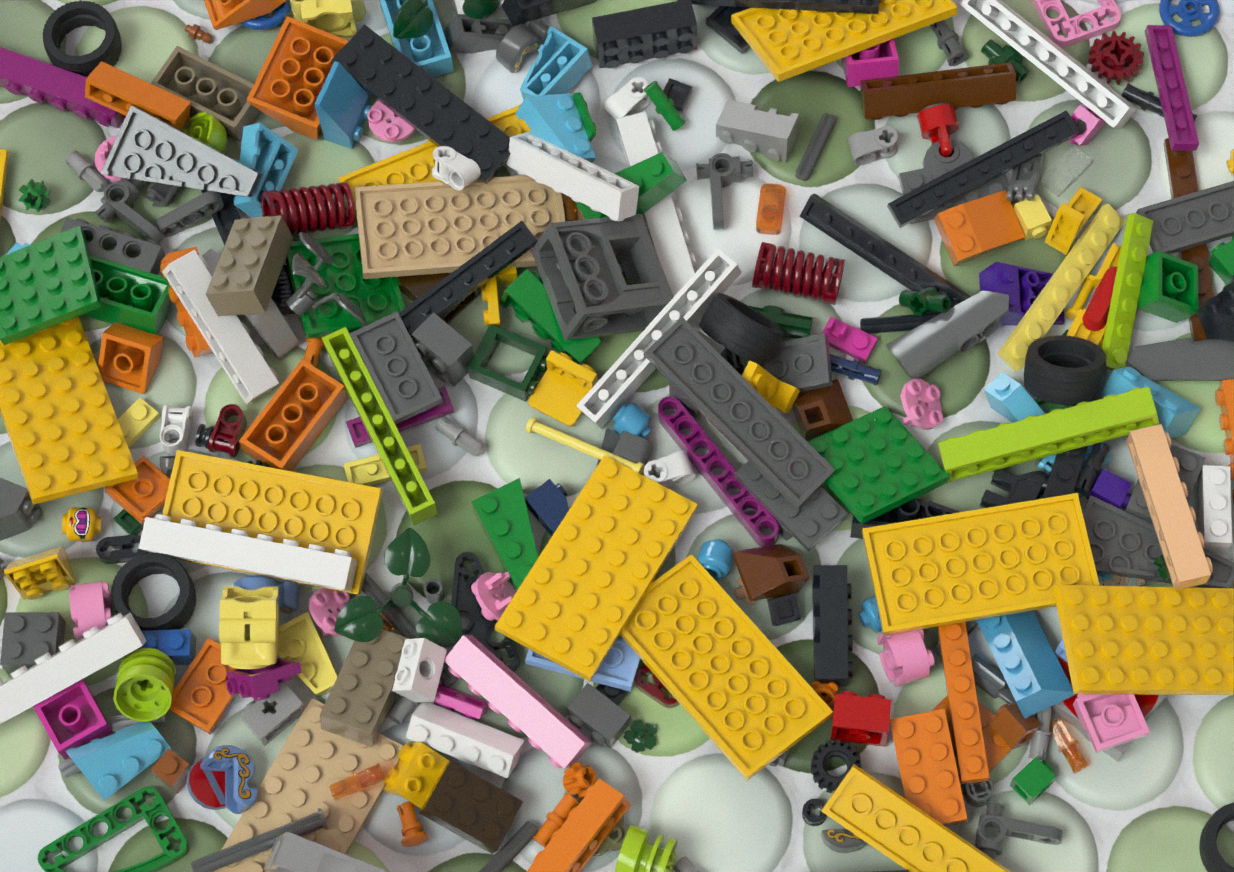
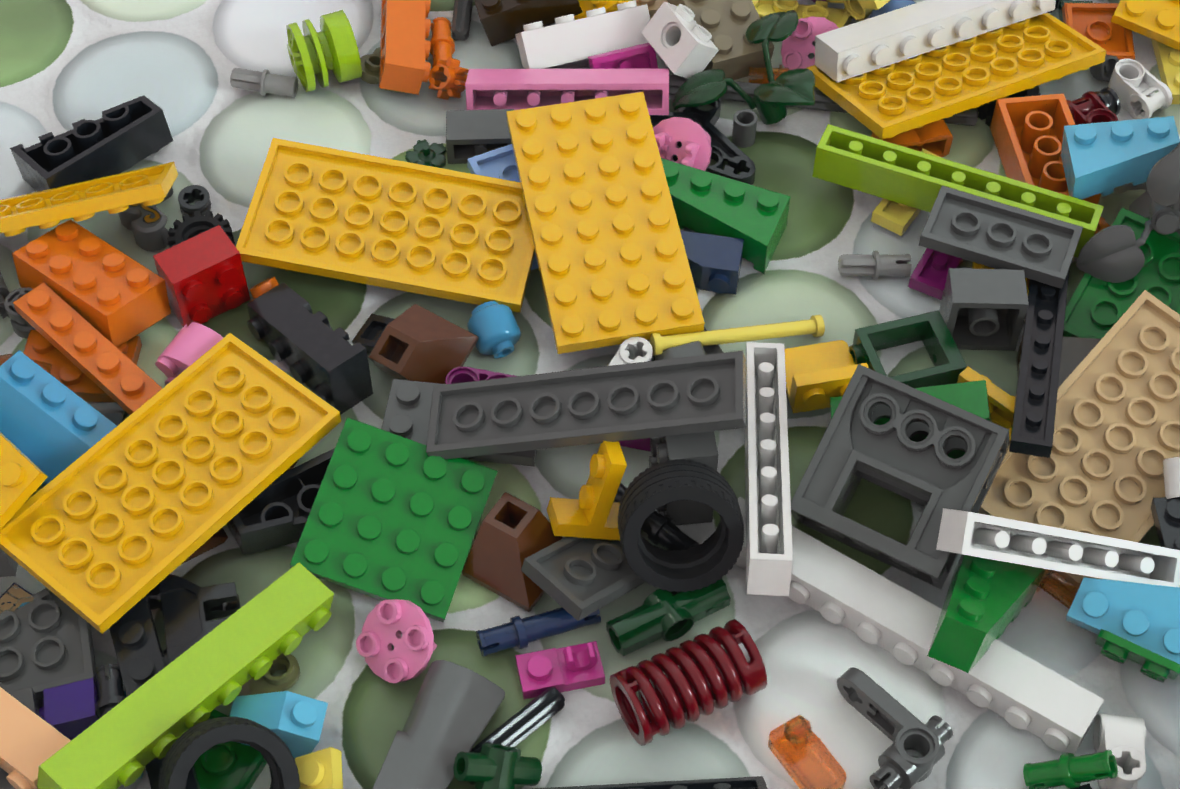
camera: 135 degrees right, 15 degrees down
(280, 358) = (1114, 153): none -> medium azure wedge

